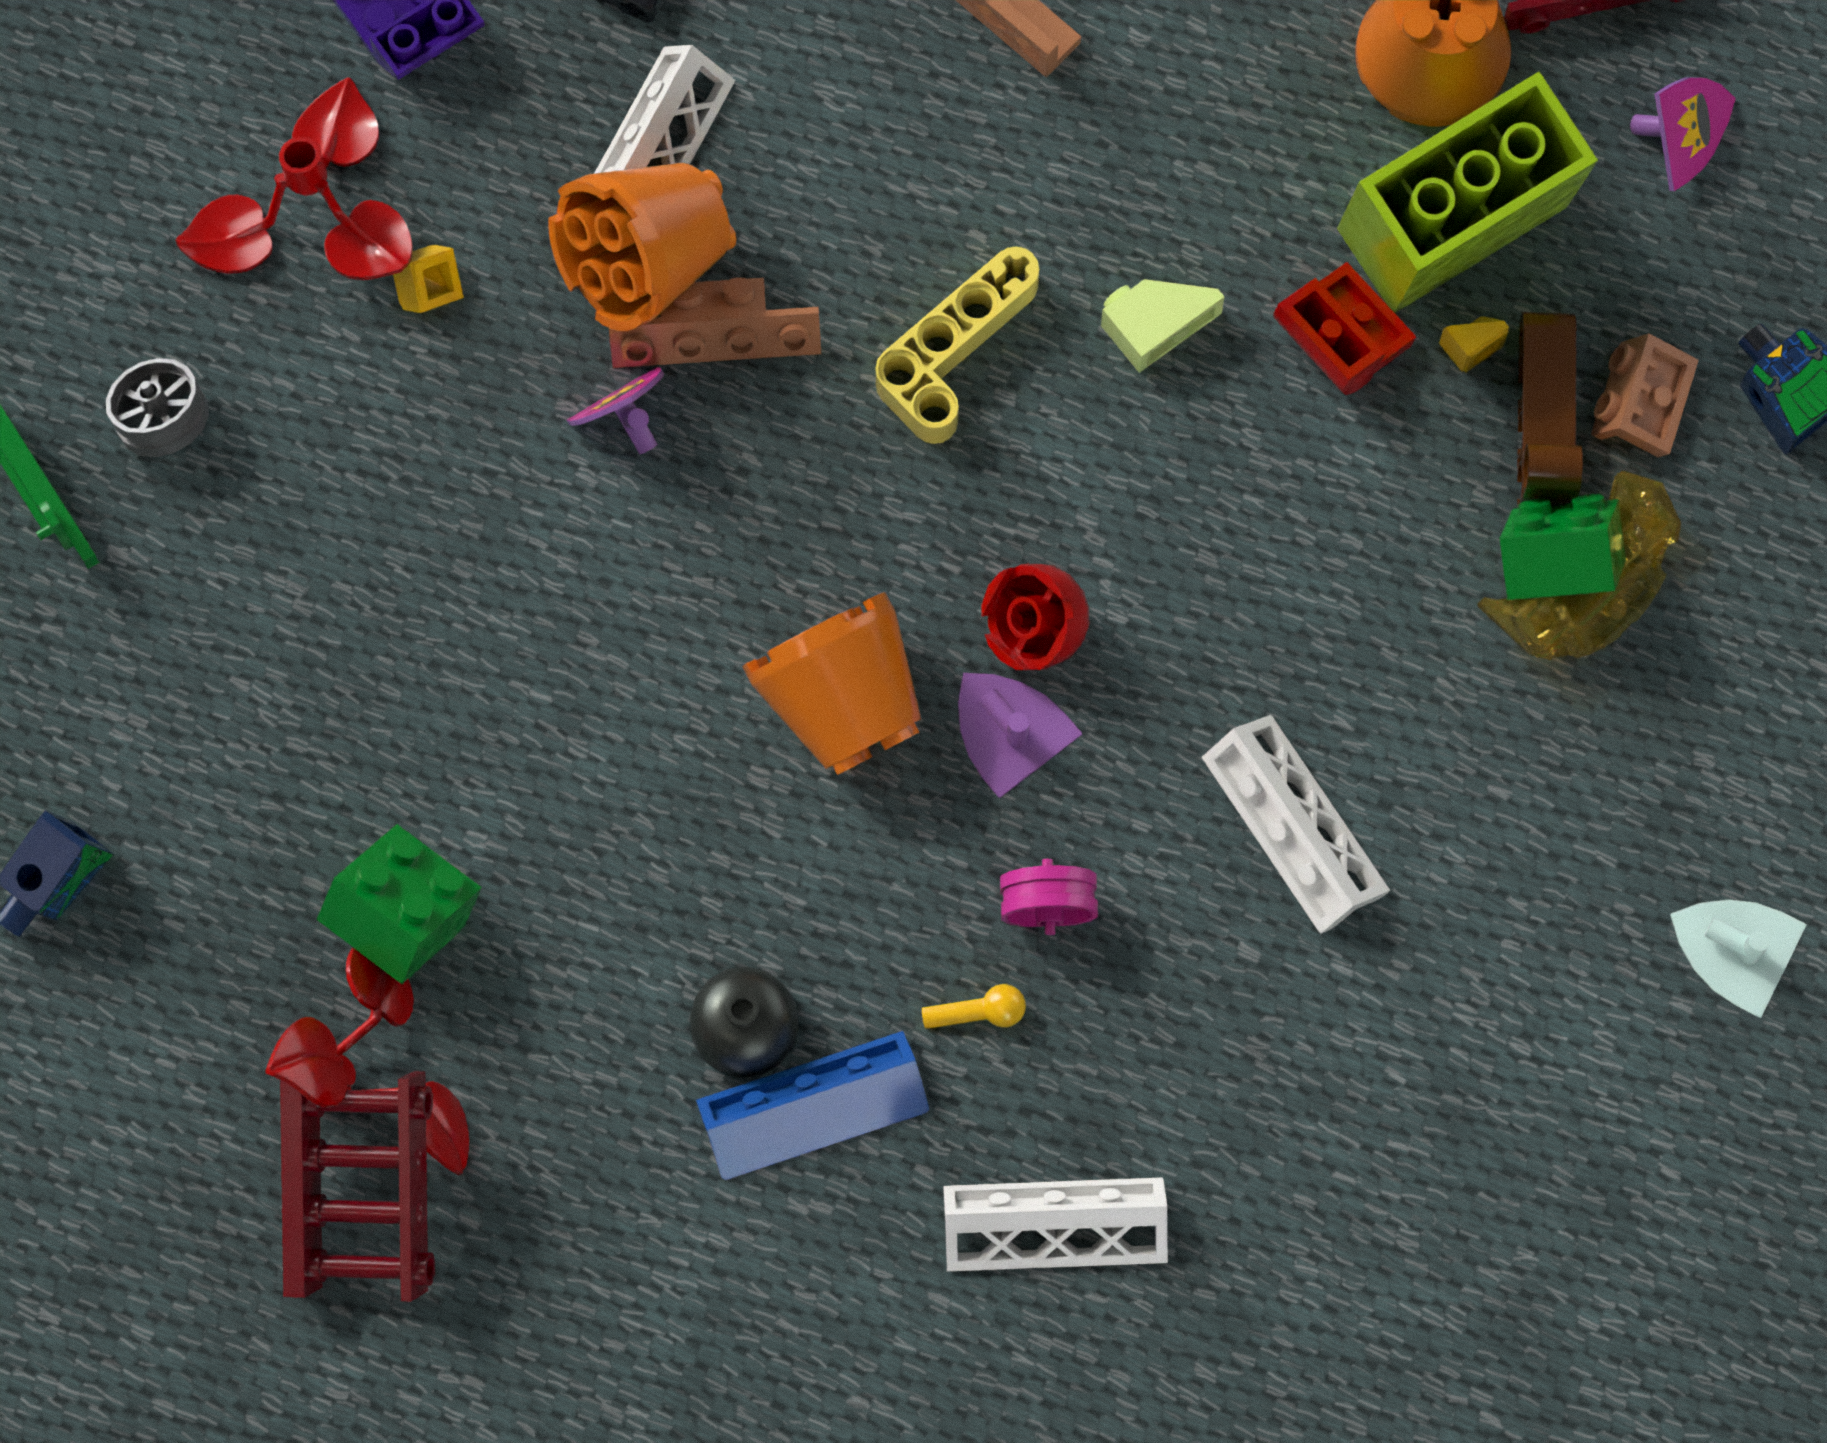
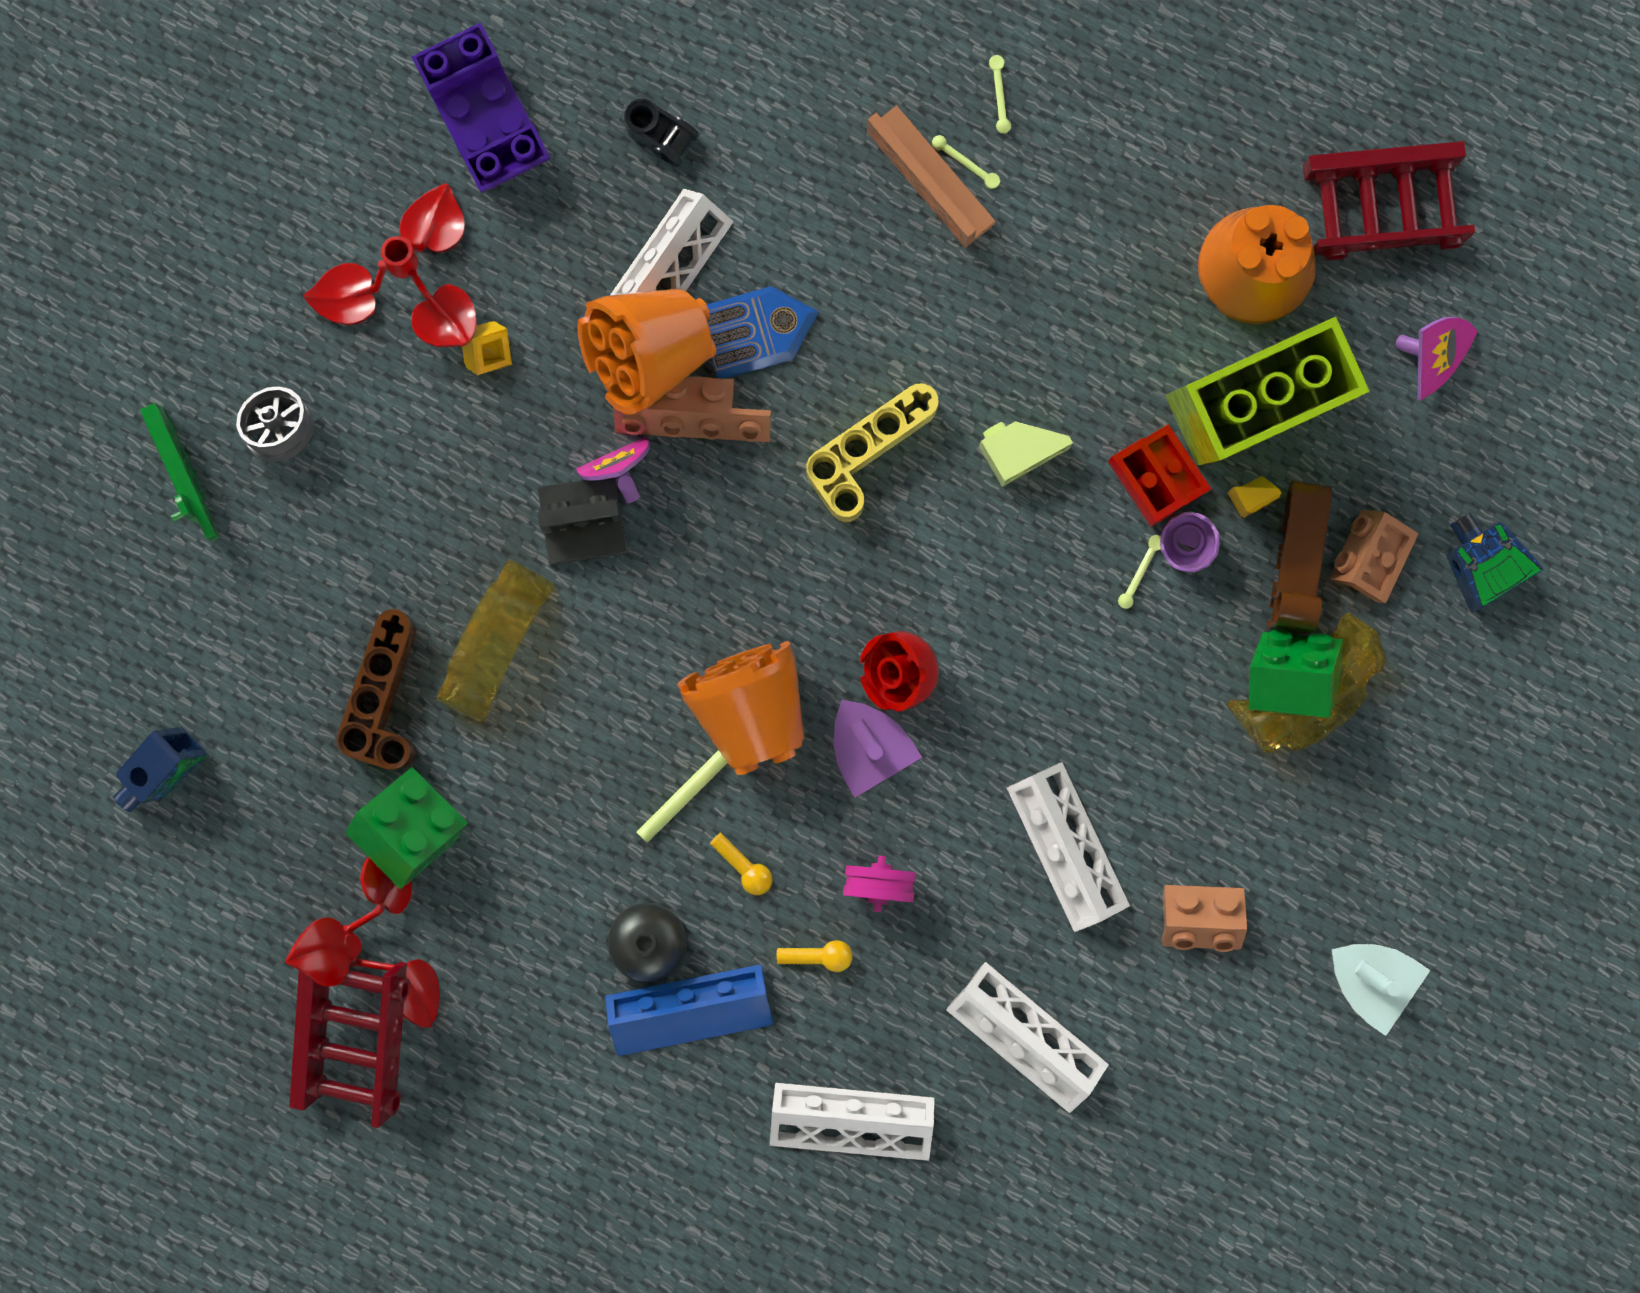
camera: 10 degrees right, 10 degrees up
(344, 730) = (385, 688): none -> reddish brown beam
(483, 650) = (493, 639): none -> clear yellow windscreen
(584, 483) = (581, 520): none -> pearl dark grey bracket
(767, 823) = (682, 796): none -> yellowish green bar
(787, 214) = (757, 330): none -> blue tile
(878, 920) = (755, 877): none -> yellow bar
(1273, 1085) = (1024, 1042): none -> white fence
(1353, 420) = (1126, 600): none -> yellowish green hinge
(1402, 395) = (1194, 531): none -> medium lavender hair
(1492, 892) = (1204, 917): none -> nougat bracket

